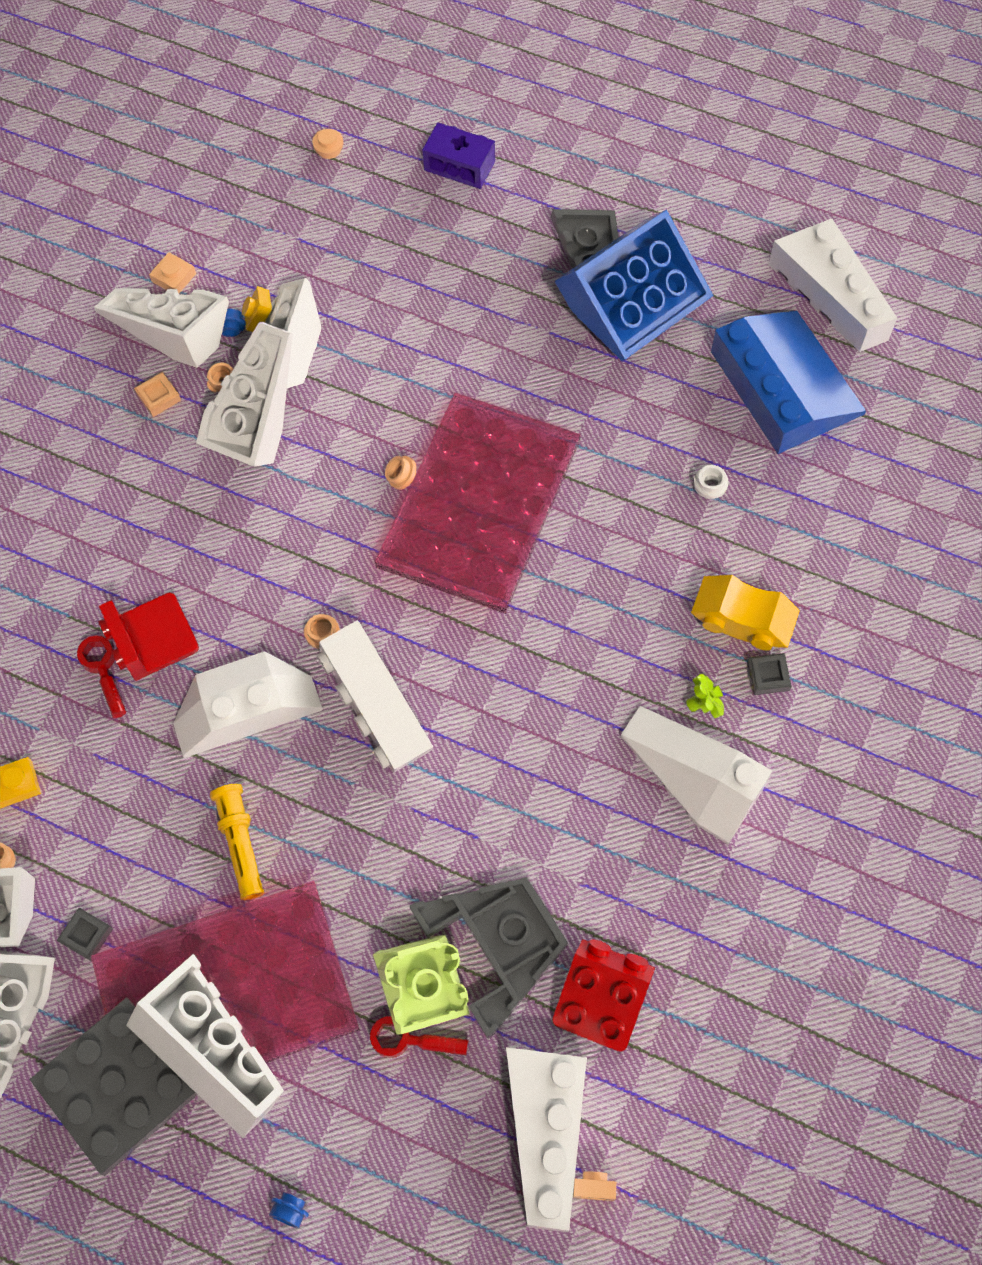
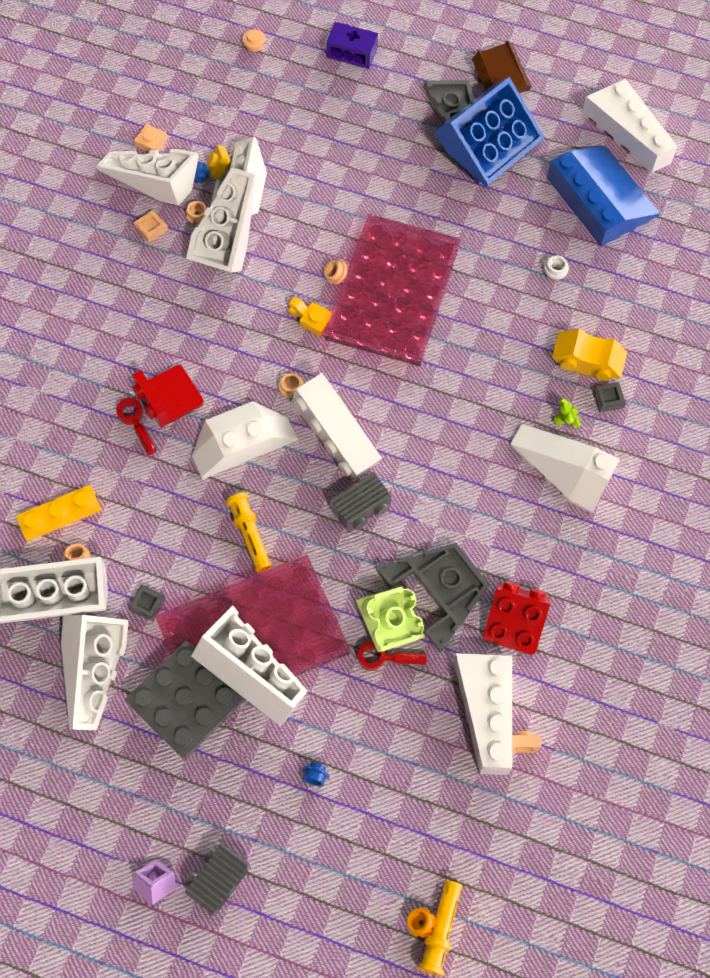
camera: 10 degrees left, 0 degrees up
(362, 535) = (312, 318): none -> yellow plate
(399, 808) = (361, 502): none -> dark grey brick
(660, 189) = (498, 64): none -> reddish brown slope

